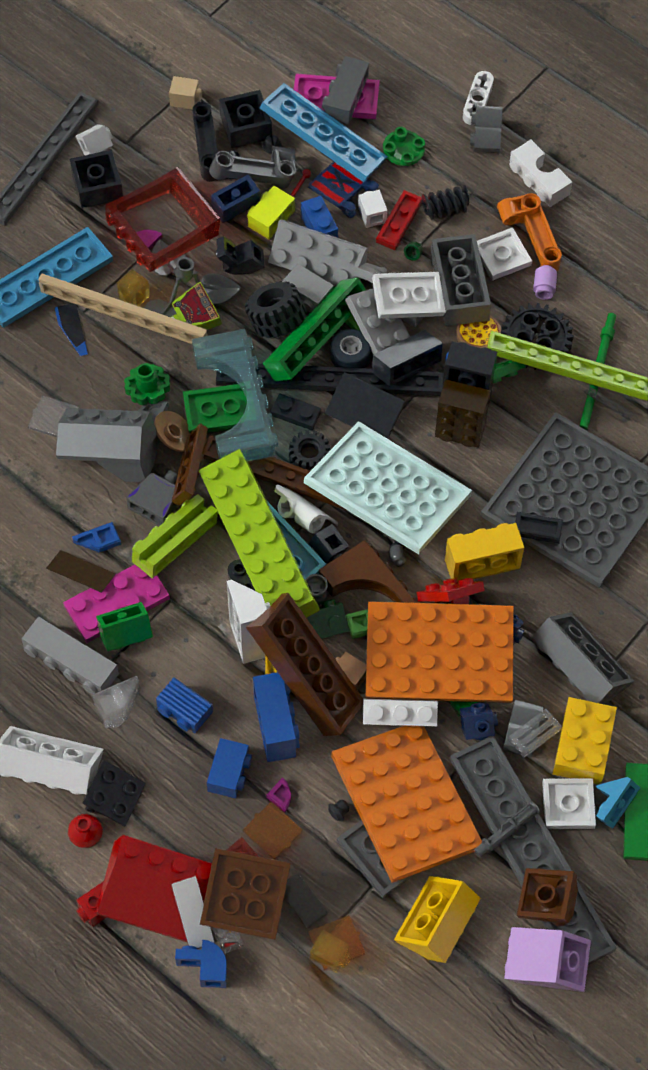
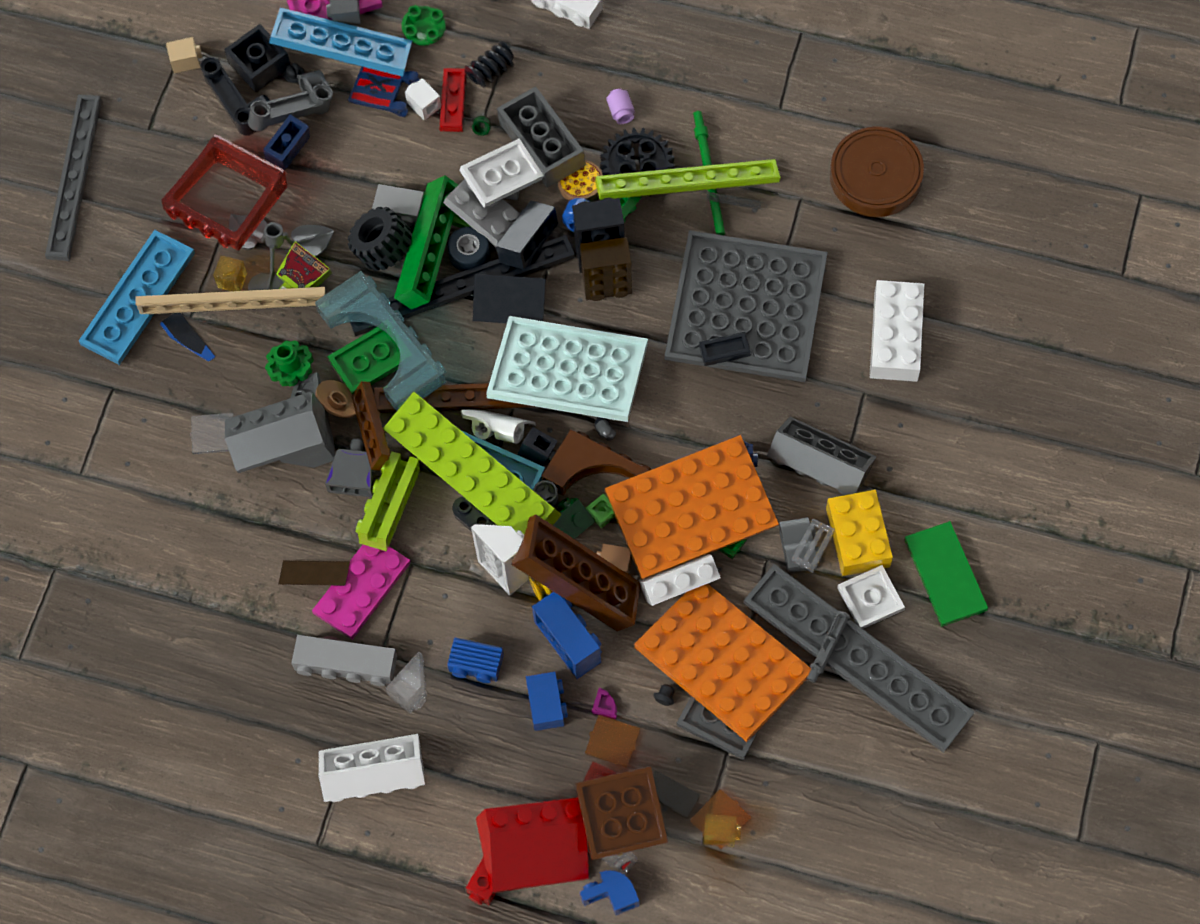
camera: 20 degrees left, 5 degrees up
(85, 830) = (438, 818): red brick -> none
(95, 139) = (119, 139): white brick -> none
(96, 178) = (140, 177): black brick -> none
(99, 538) = (315, 533): blue tile -> none
(113, 793) = (449, 772): black hinge -> none
(124, 626) = (383, 609): green brick -> none
(150, 237) = (220, 215): magenta tile -> none
(190, 909) = (577, 850): white sticker -> none
(241, 258) = (318, 201): black brick -> none
(271, 208) = (326, 142): neon yellow brick -> none
(295, 411) = (443, 330): black plate -> none
(304, 441) = (467, 355): black tyre -> none
(305, 174) = (341, 89): red hinge -> none
(317, 216) = (378, 134): blue brick -> none
(321, 254) = (397, 166): light grey hinge -> none
(438, 918) = (802, 756): yellow slope -> none
(451, 591) = (675, 445): red plate -> none
(478, 721) = (754, 557): dark blue brick -> none
(484, 552) = (687, 394): yellow brick -> none
(503, 254) = (568, 94): white plate -> none
(517, 210) = (595, 61): orange piece -> none
(547, 958) = (919, 749): lavender slope -> none
(548, 896) = (894, 692): reddish brown slope -> none
(619, 795) = (914, 569): dark azure slope -> none

